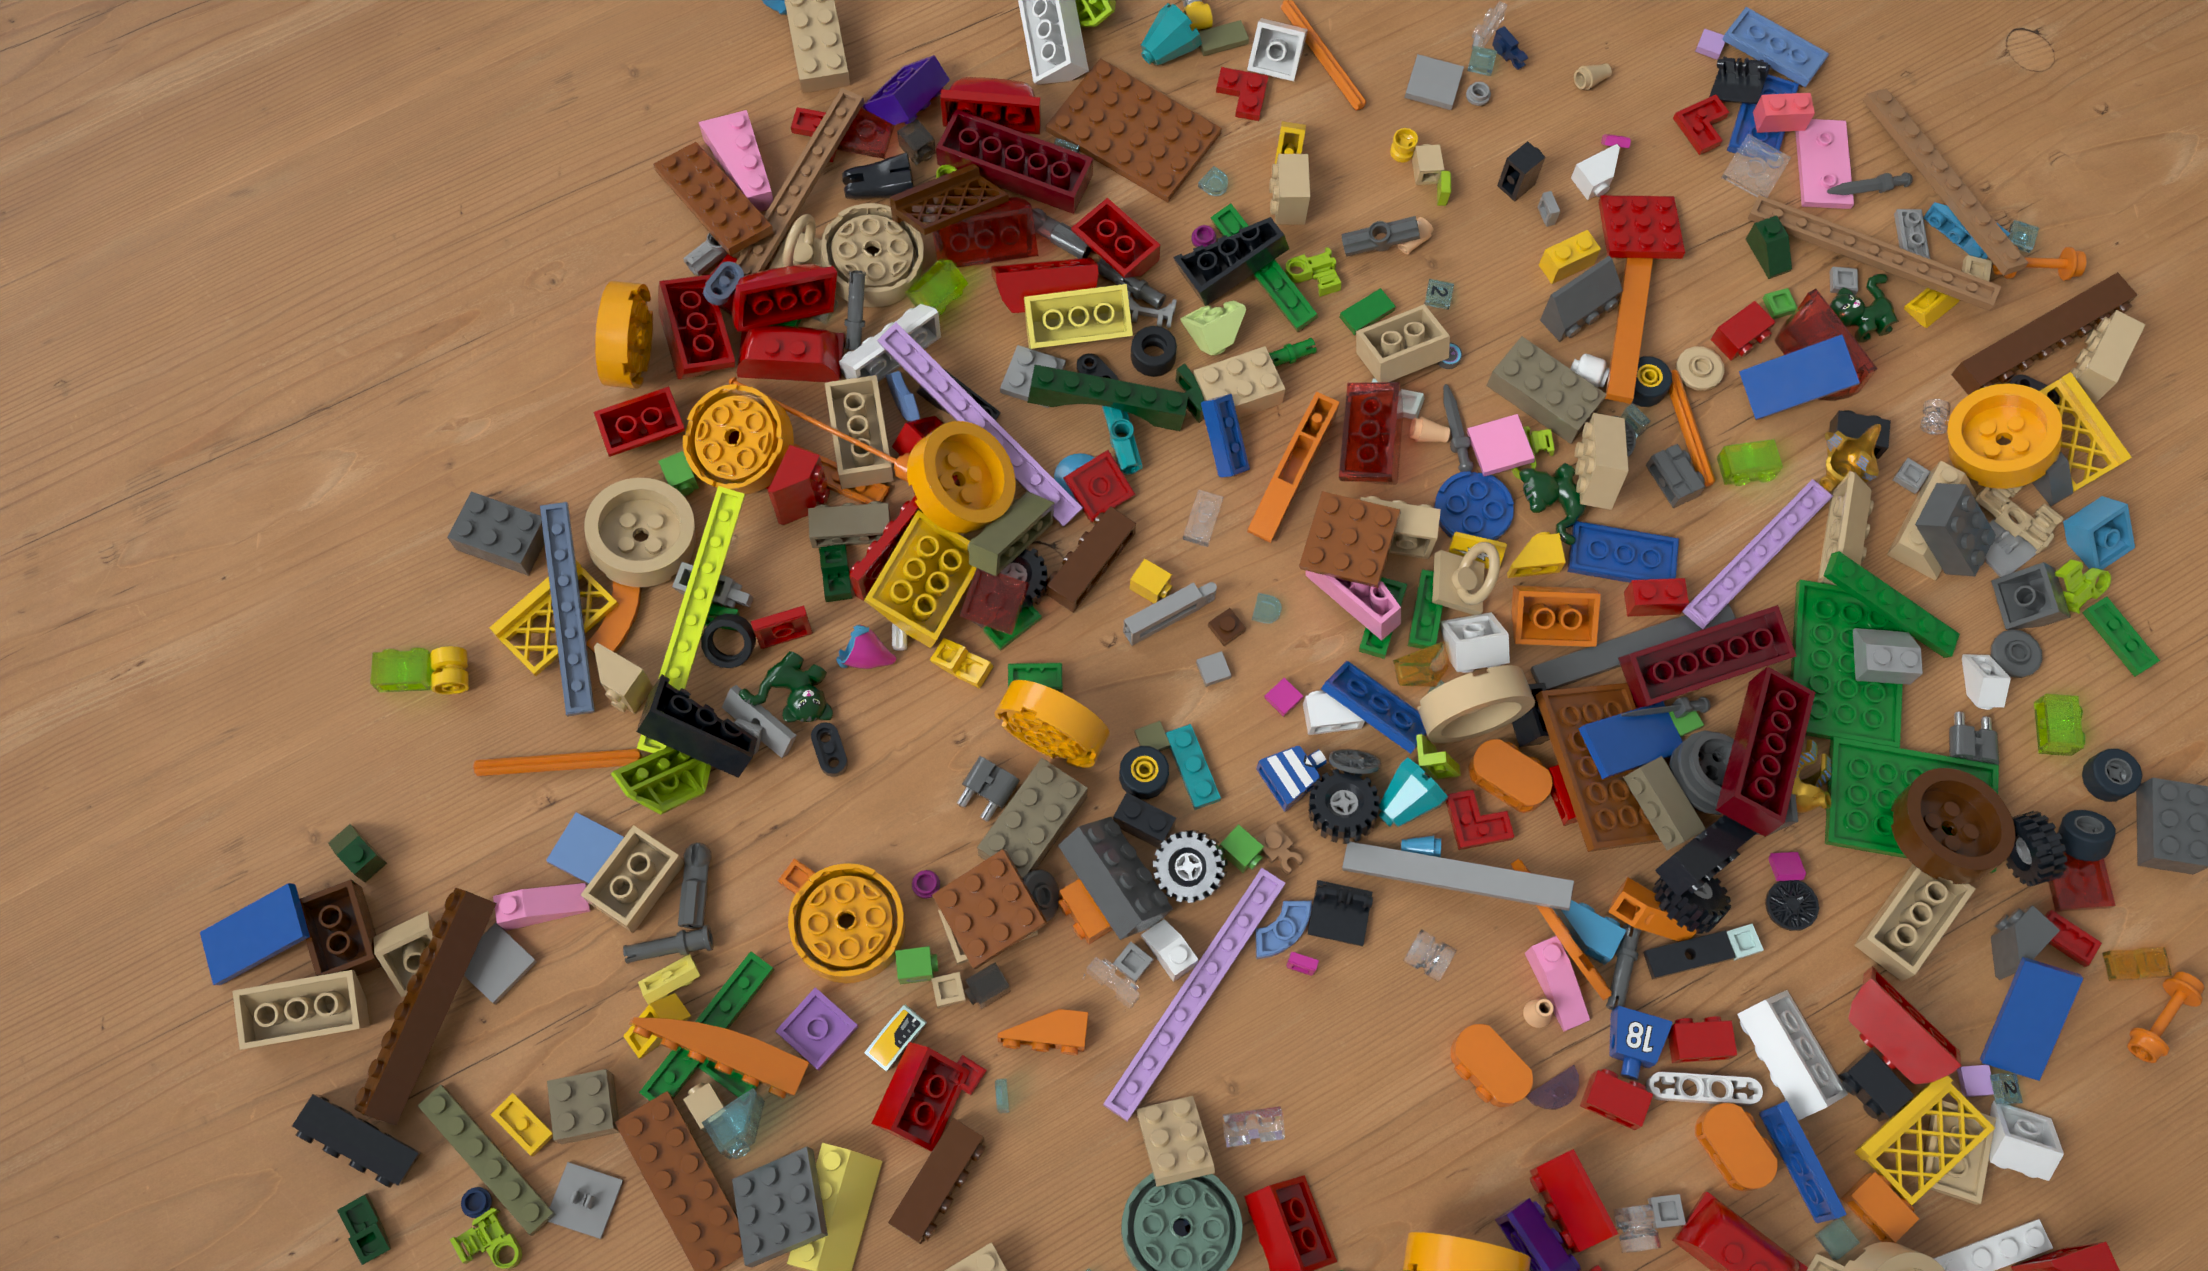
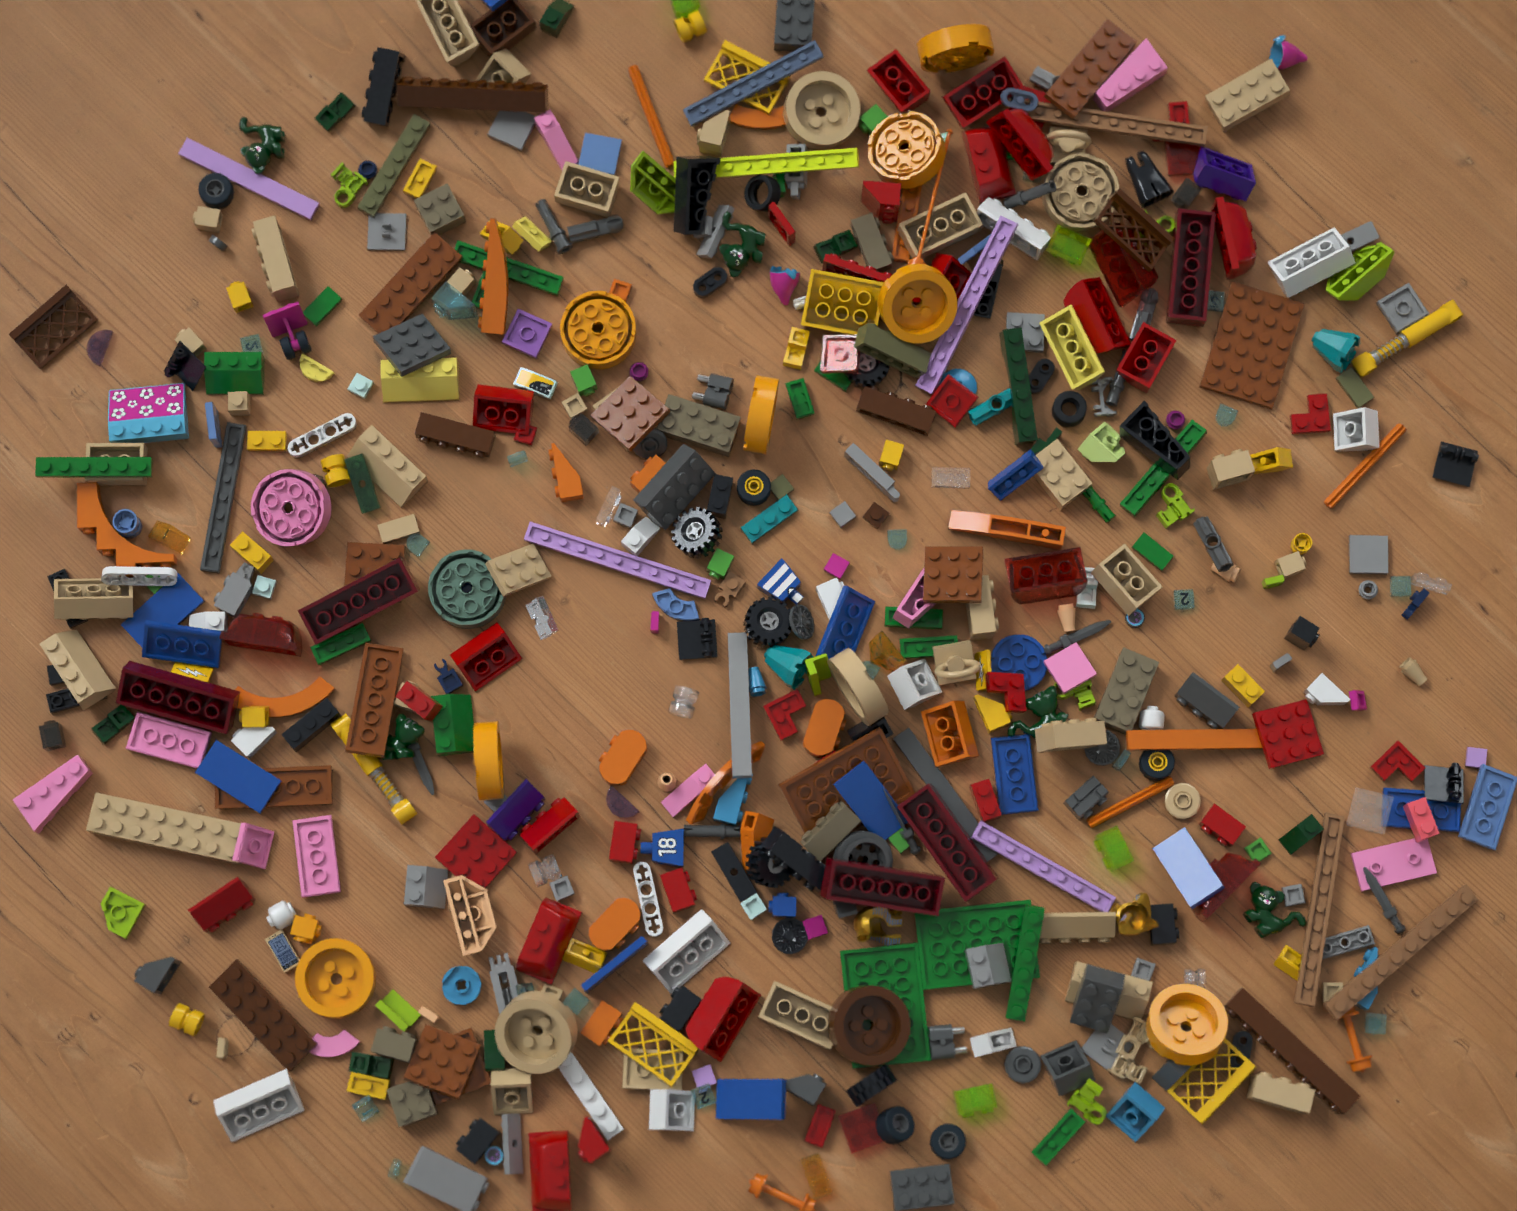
camera: 75 degrees right, 10 degrees up
(1511, 519) = (1013, 688): none -> red plate
(1751, 900) = (783, 906): none -> blue brick
(1771, 1205) = (584, 956): none -> yellow slope

